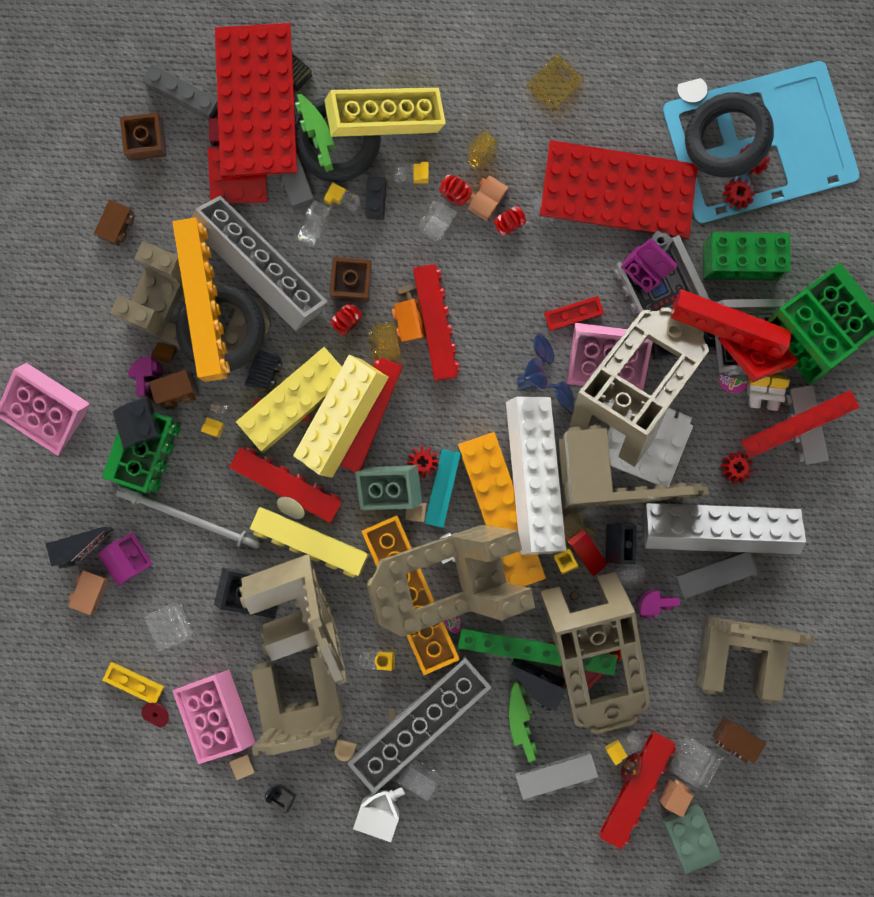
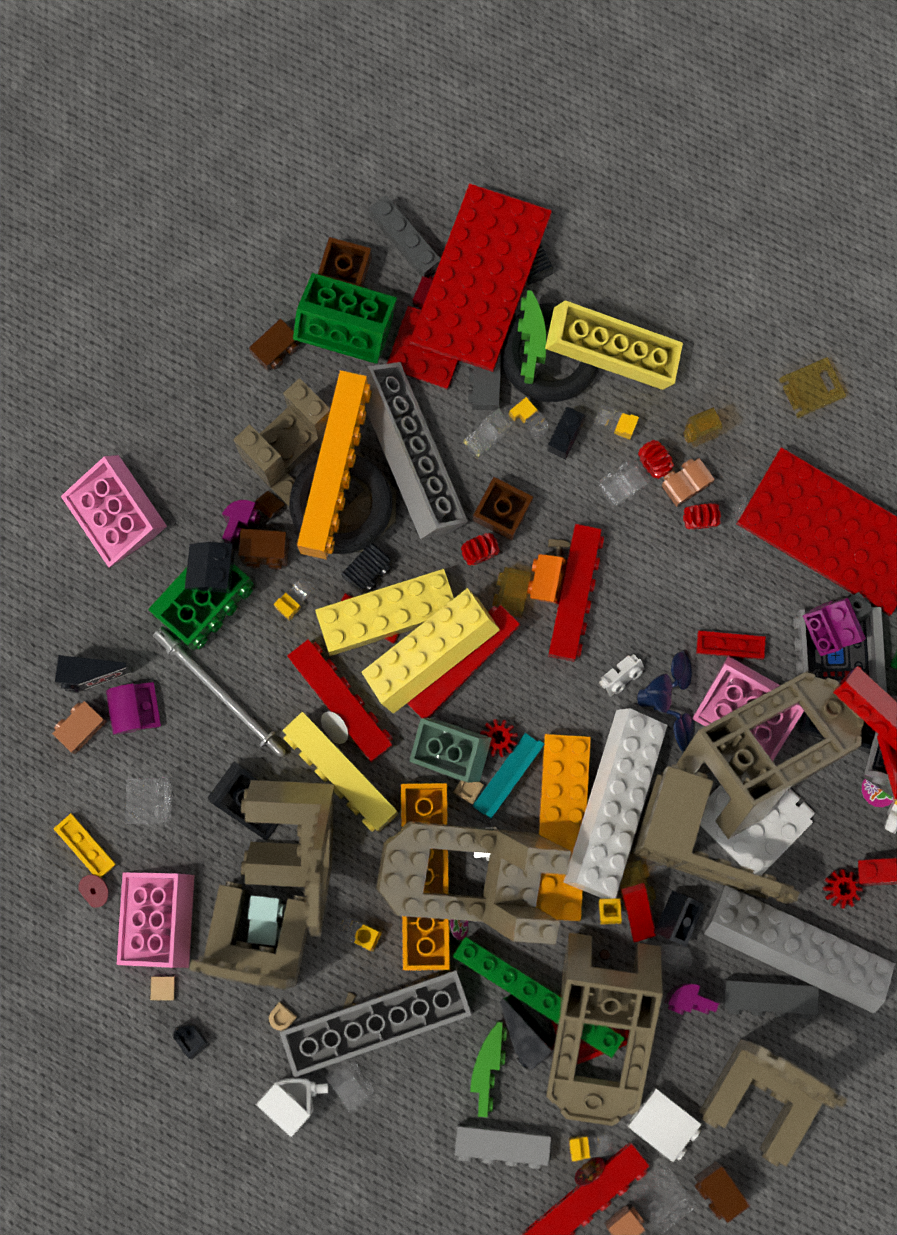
camera: 25 degrees right, 5 degrees down
(159, 178) = (344, 318): none -> green brick
(299, 681) = (265, 920): none -> light aqua brick
(504, 365) = (630, 669): none -> white hinge
(674, 707) = (664, 1125): none -> white brick

